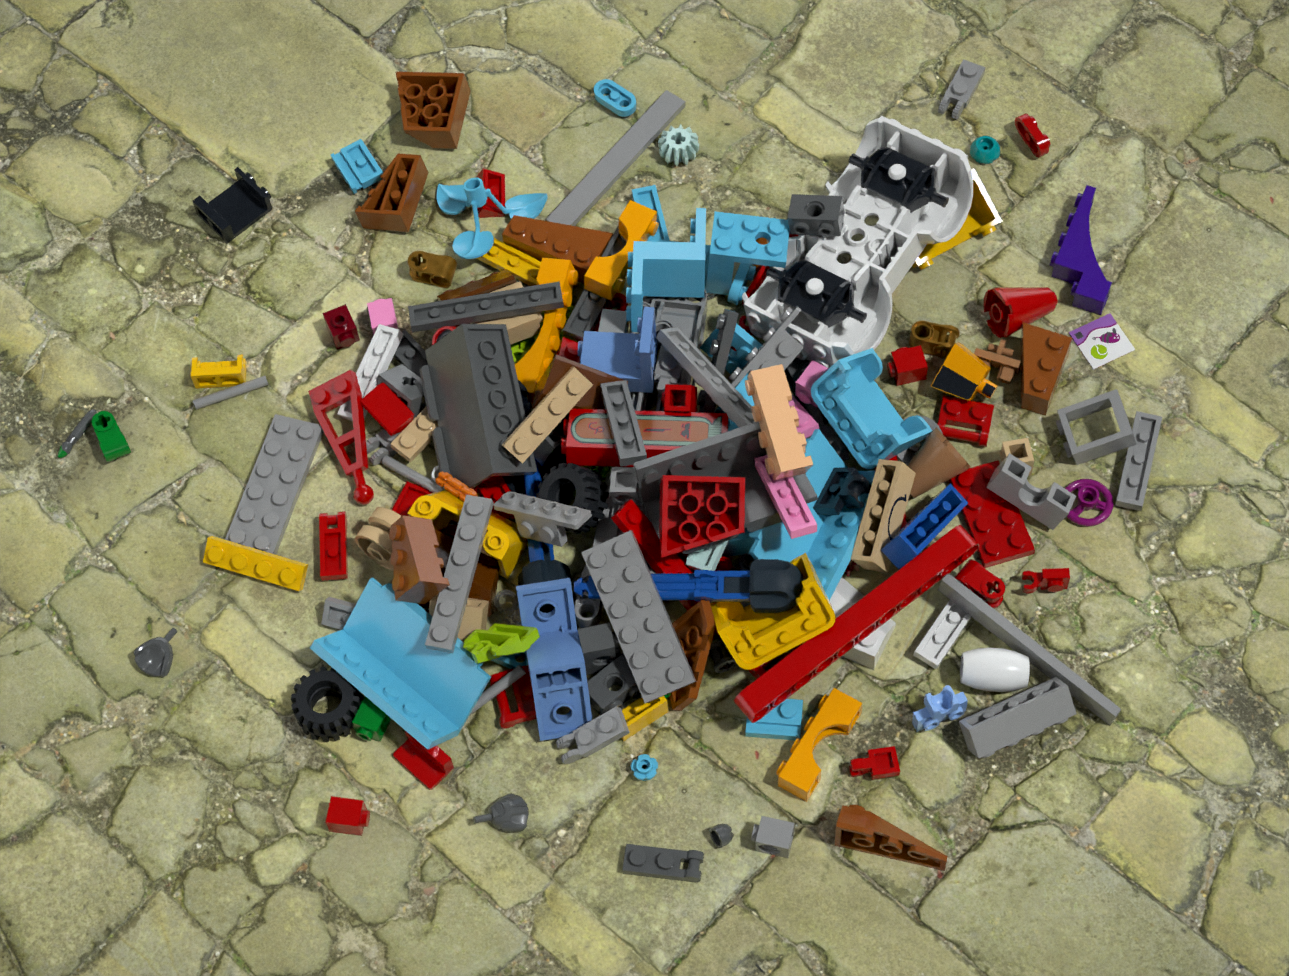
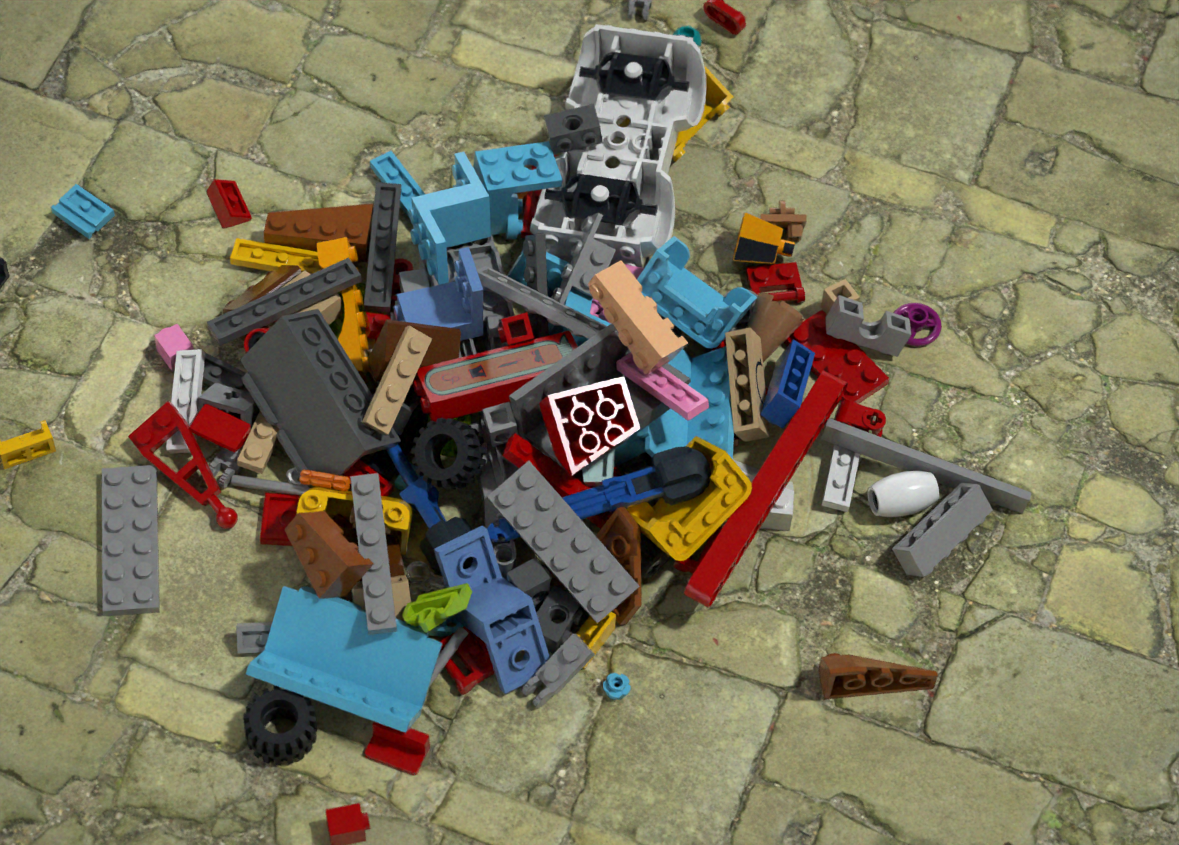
camera: 30 degrees left, 5 degrees down
(155, 655) = (79, 736): dark grey piece -> none
(230, 392) = (44, 462): light grey bar -> none
(255, 563) = (144, 616): yellow plate -> none
(333, 546) = (218, 576): red plate -> none
(341, 327) = (134, 366): dark red brick -> none
(370, 721) = (330, 726): green brick -> none
(375, 539) = (271, 552): tan wheel -> none
(396, 197) = (137, 228): dark orange wedge -> none
(433, 106) = (138, 133): dark orange wedge -> none
(434, 269) = (204, 287): pearl gold piece -> none
(456, 198) = (198, 217): medium azure plant -> none
(507, 814) = (503, 772): dark grey piece -> none
(542, 518) = (430, 480): light grey bracket -> none
(608, 273) = (387, 238): light orange arch -> none
(616, 99) = (316, 81): medium azure plate -> none
(618, 160) = (342, 137): light grey tile -> none
(623, 422) = (477, 364): dark grey plate -> none
(662, 863) = (672, 767): dark grey plate -> none
(678, 145) = (397, 108): light aqua gear -> none
(721, 835) = (716, 723): dark grey hinge -> none
(773, 836) = (767, 708): light grey brick -> none
(780, 723) = (727, 606): medium azure plate -> none
(836, 717) = (769, 639): light orange arch -> none
(842, 489) = (703, 370): black plate -> none
(879, 761) = (834, 609): red plate -> none
(907, 365) = (704, 248): red brick -> none
(935, 337) = (714, 219): pearl gold piece -> none
(939, 708) = (870, 541): light blue plate -> none
(1014, 305) = (779, 170): red cone -> none
(1041, 366) = (826, 215): dark orange wedge -> none
(1049, 579) = (915, 400): red plate -> none
(1077, 260) = (815, 114): dark purple arch -> none
(1101, 341) = (865, 180): sticker -> none
(1101, 446) = (927, 257): light grey window -> none
(1138, 461) = (946, 274): light grey plate -> none

